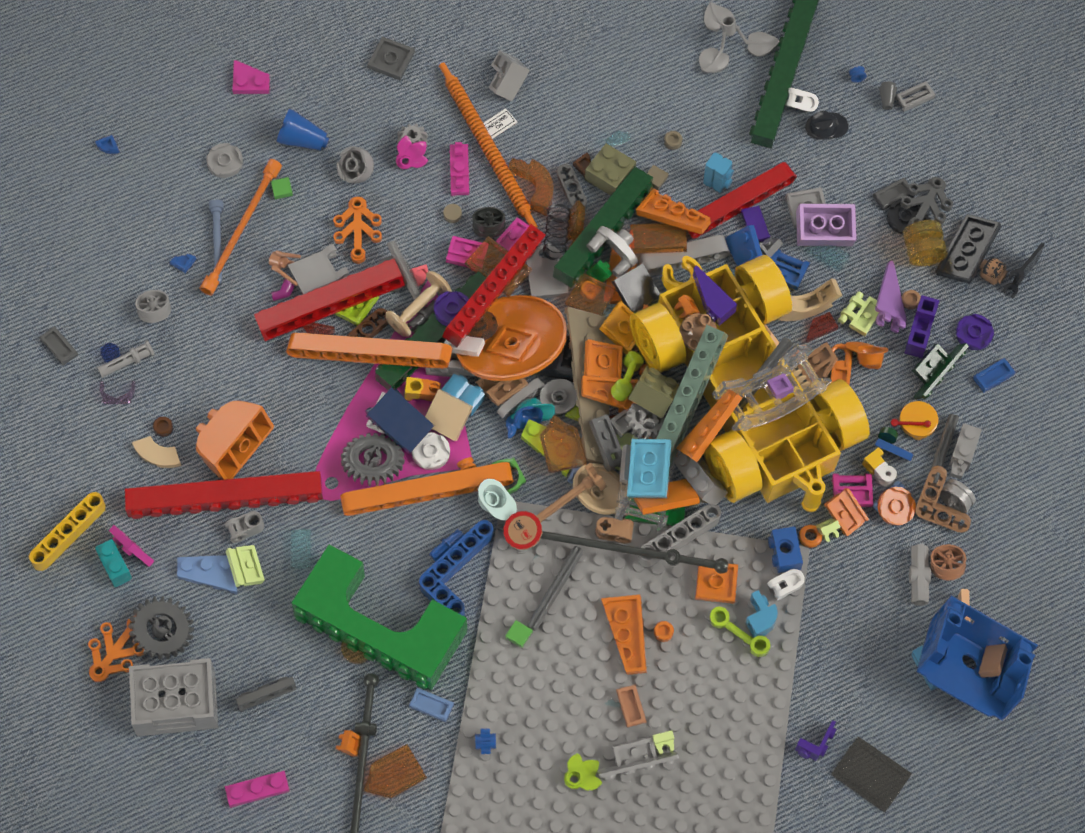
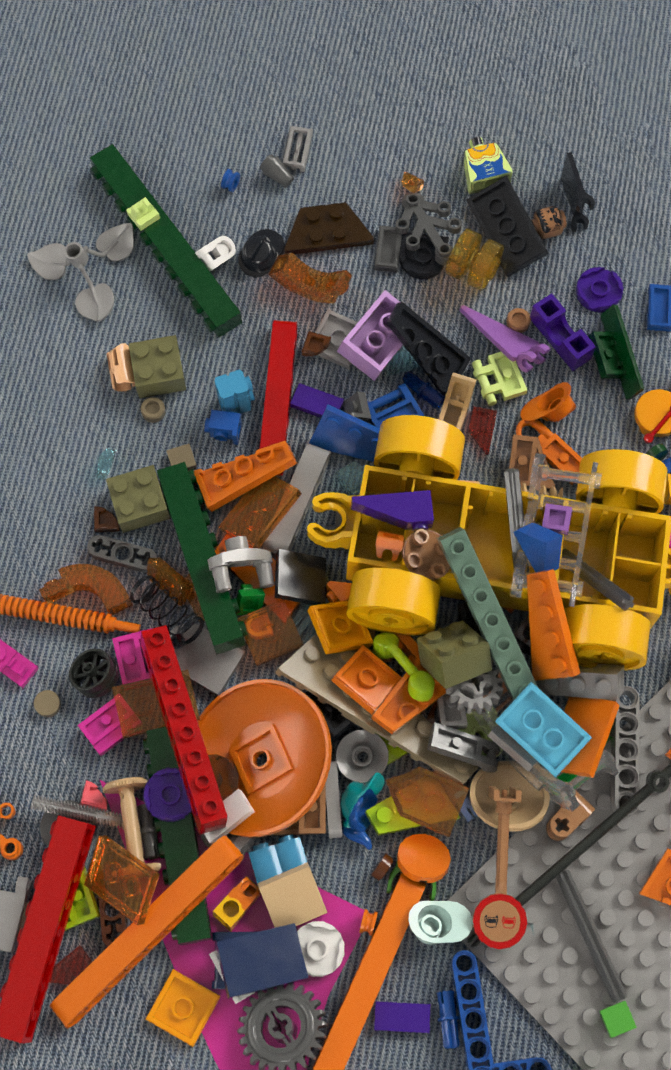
camera: 50 degrees left, 5 degrees up
(343, 404) = (183, 1008): none -> light orange tile
(385, 314) = (121, 879): none -> clear orange tile
(428, 521) = (402, 1017): none -> dark purple tile
(504, 451) = (382, 867): none -> reddish brown tile
(526, 468) = (423, 858): none -> orange tile
(682, 104) = (121, 368): none -> light nougat arm
(695, 184) = (224, 425): none -> blue brick
(700, 121) = (157, 366): none -> olive brick
(753, 386) = (540, 546): none -> blue slope
(763, 438) = (601, 583): none -> dark grey axle
(788, 41) = (143, 214): none -> yellowish green tile
(790, 196) = (315, 344): none -> reddish brown tile
(815, 275) = (423, 390): none -> clear blue axle
(828, 161) = (308, 282): none -> clear orange arch
(841, 254) = (427, 346): none -> black wing
(874, 150) = (327, 229): none -> dark brown wing
(949, 175) = (412, 182): none -> clear orange tile
(998, 206) = (484, 165): none -> torso

